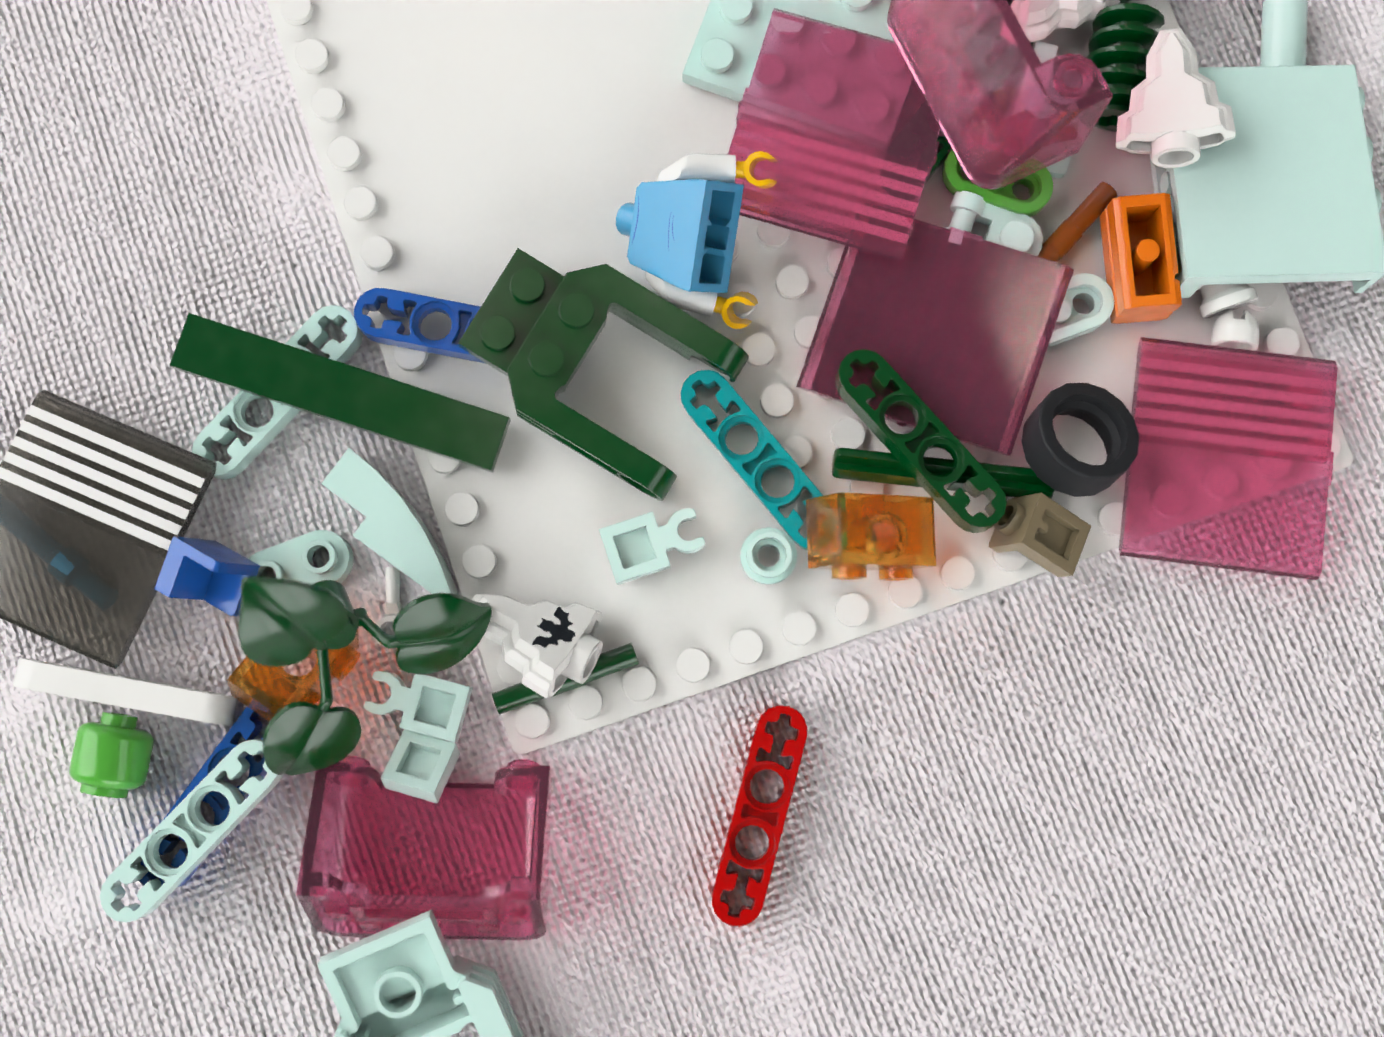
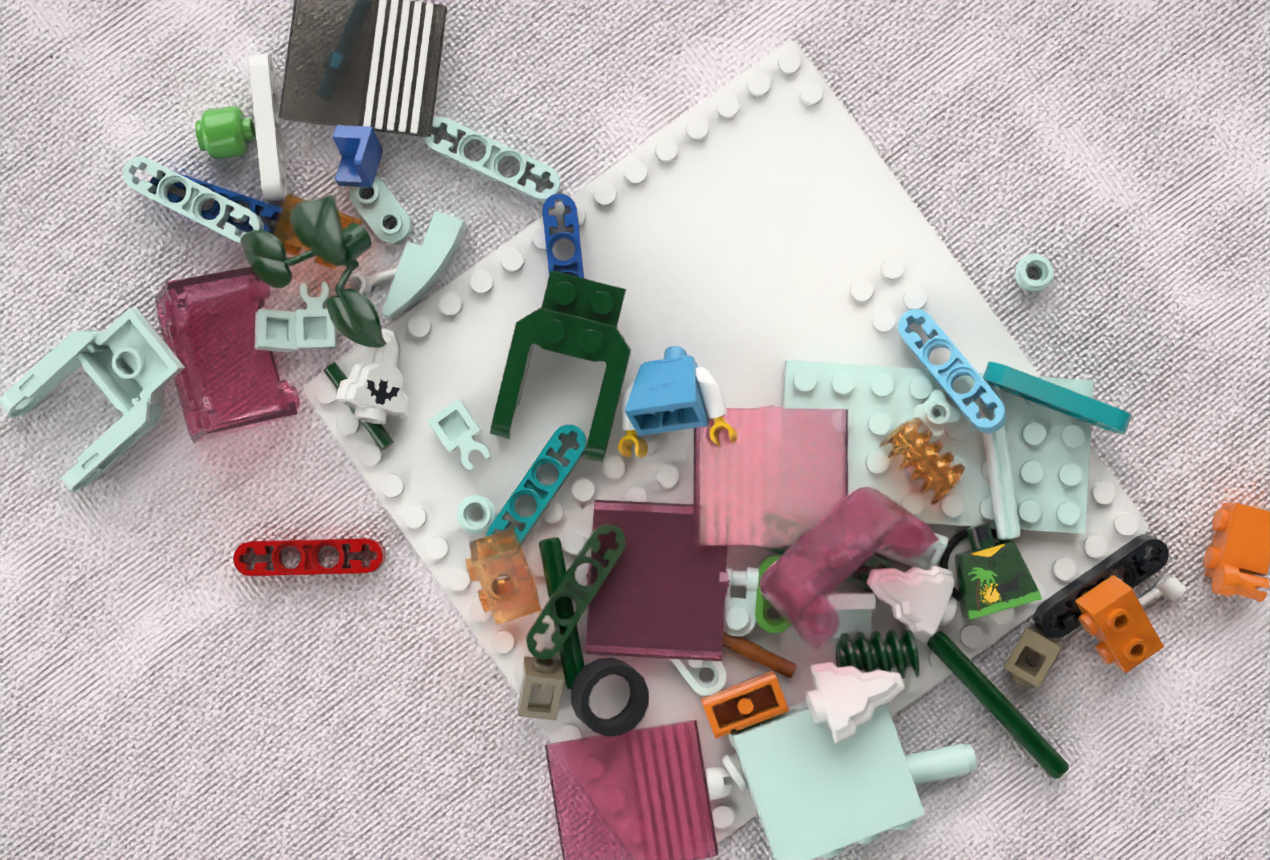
camera: 75 degrees right, 5 degrees up
(340, 392) = (500, 202): dark green tile -> none

